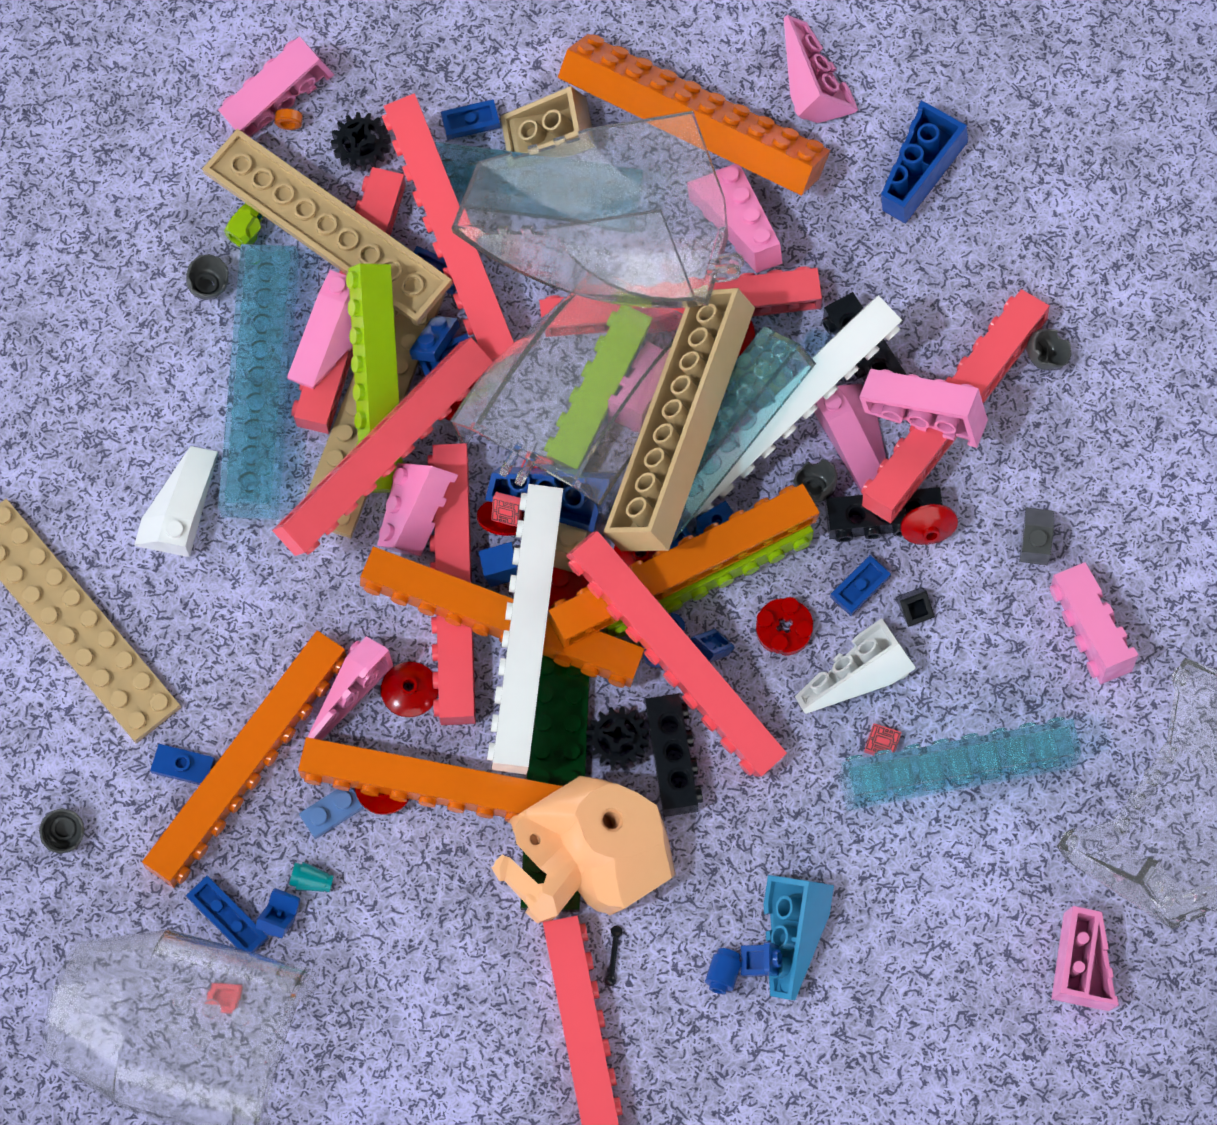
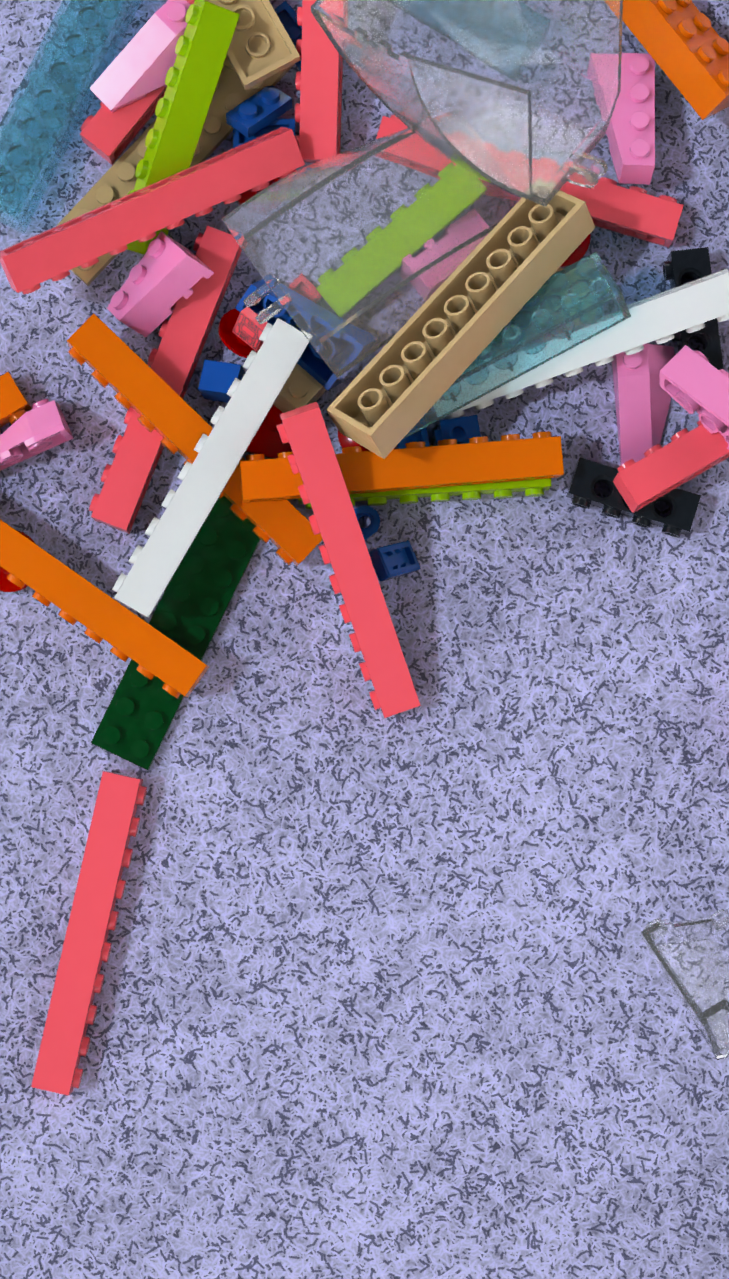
camera: 20 degrees right, 15 degrees up
(412, 702) = (80, 485): red dish -> none
(592, 842) = (186, 709): light nougat piece -> none
(616, 932) = (175, 807): black hinge -> none
(628, 741) = (269, 601): black gear -> none
(660, 711) = (286, 699): black brick -> none
(723, 971) = (260, 895): blue brick -> none
(760, 960) = (301, 901): blue bracket -> none
(779, 641) = (493, 580): red plate -> none
(797, 921) = (357, 876): dark azure wedge -> none
(818, 479) = (579, 432): dark grey hair -> none
(860, 585) = (574, 560): blue plate -> none
(870, 665) = (543, 649): white wedge -> none
(882, 739) = (523, 731): coral tile -> none
(915, 606) = (619, 605): black slope -> none
(929, 524) = (671, 530): red dish -> none
(959, 763) = (588, 793): clear light blue brick -> none
(1083, 962) = (616, 1044): bright pink wedge -> none

